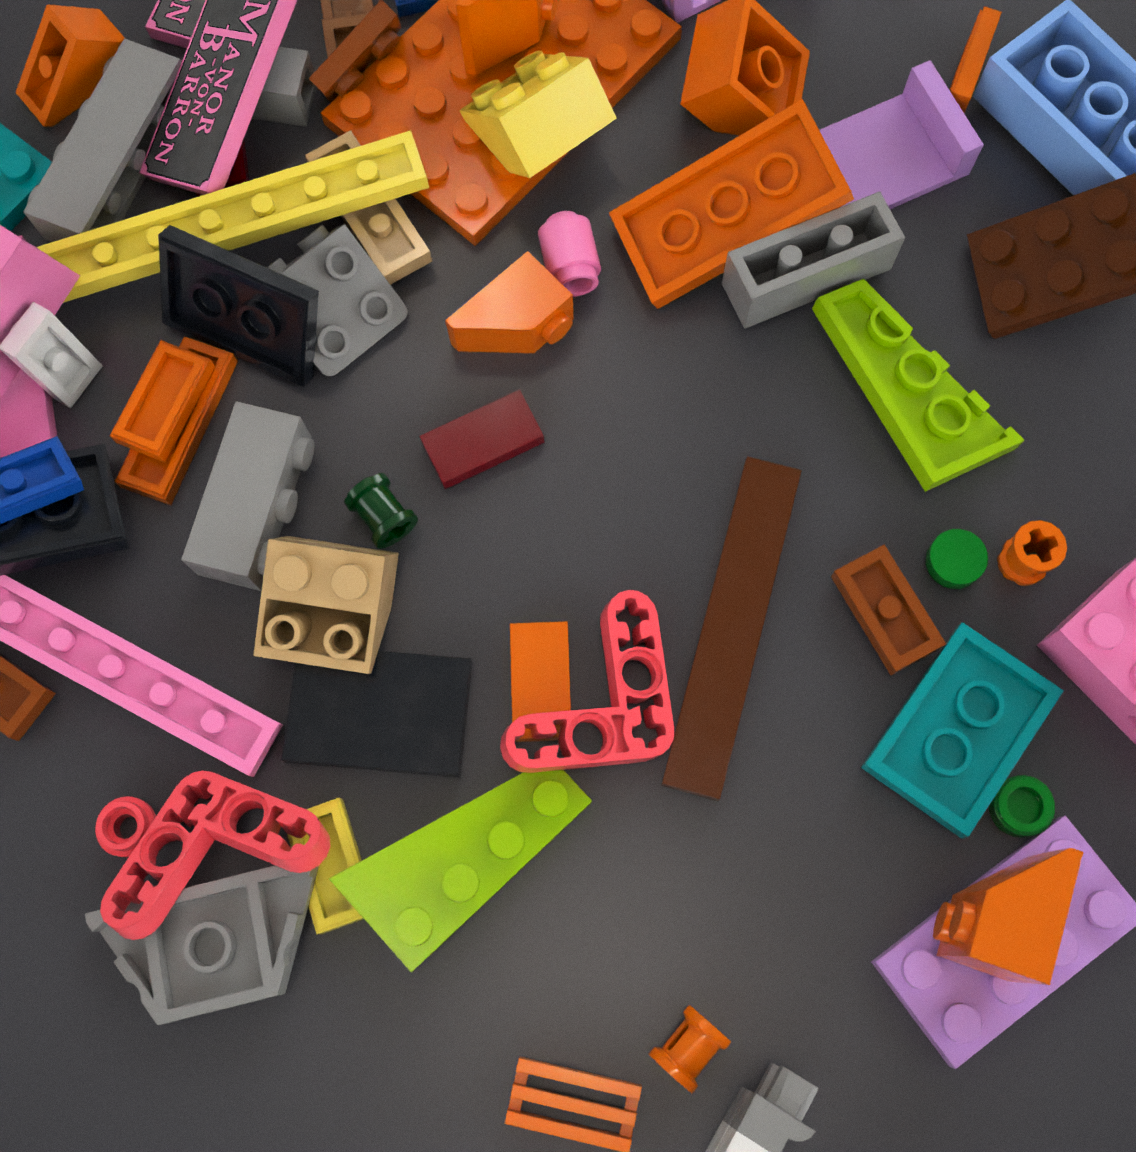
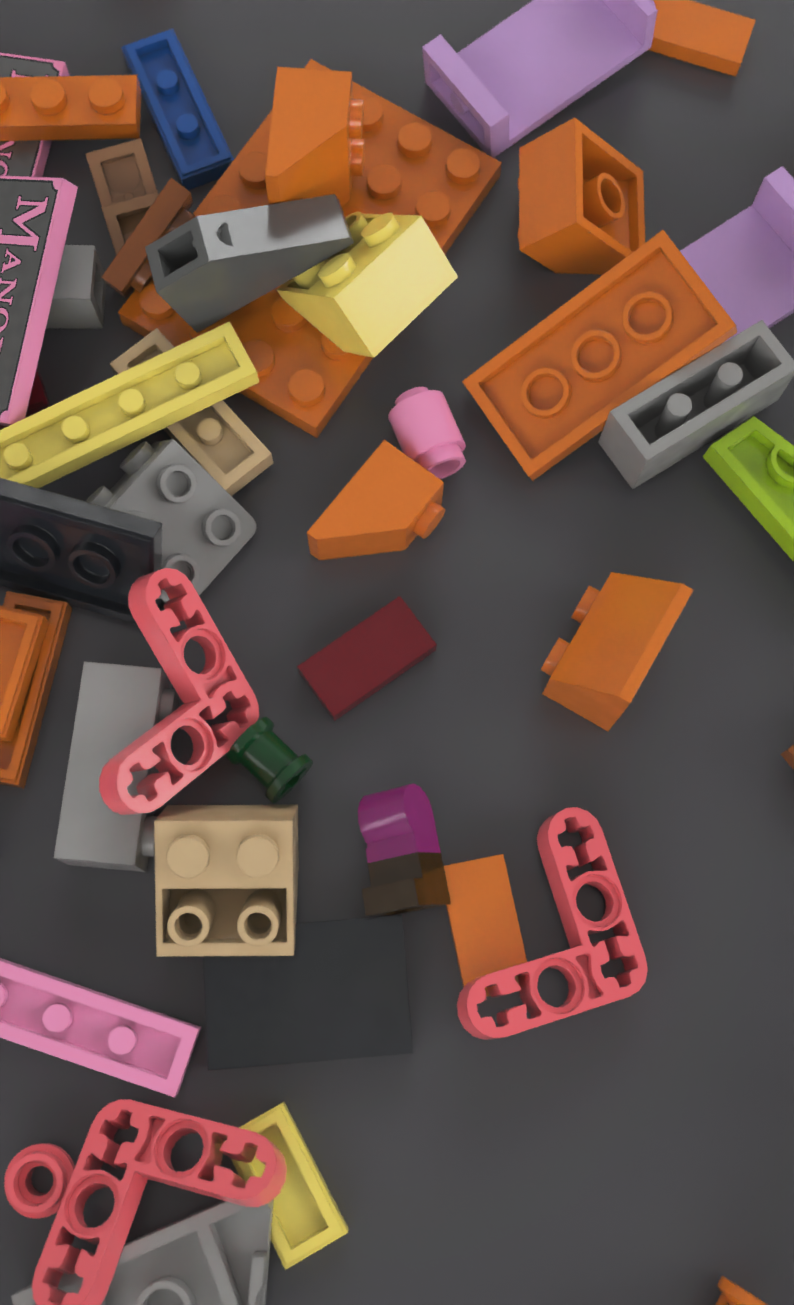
camera: 15 degrees left, 0 degrees up
(330, 444) = (201, 696): none -> coral beam
(428, 73) = (241, 254): none -> dark grey slope
(450, 868) = (422, 1170): lime wing -> none
(478, 605) = (401, 852): none -> leg
(695, 458) = (613, 646): none -> orange slope
(731, 630) = (684, 834): reddish brown tile -> none

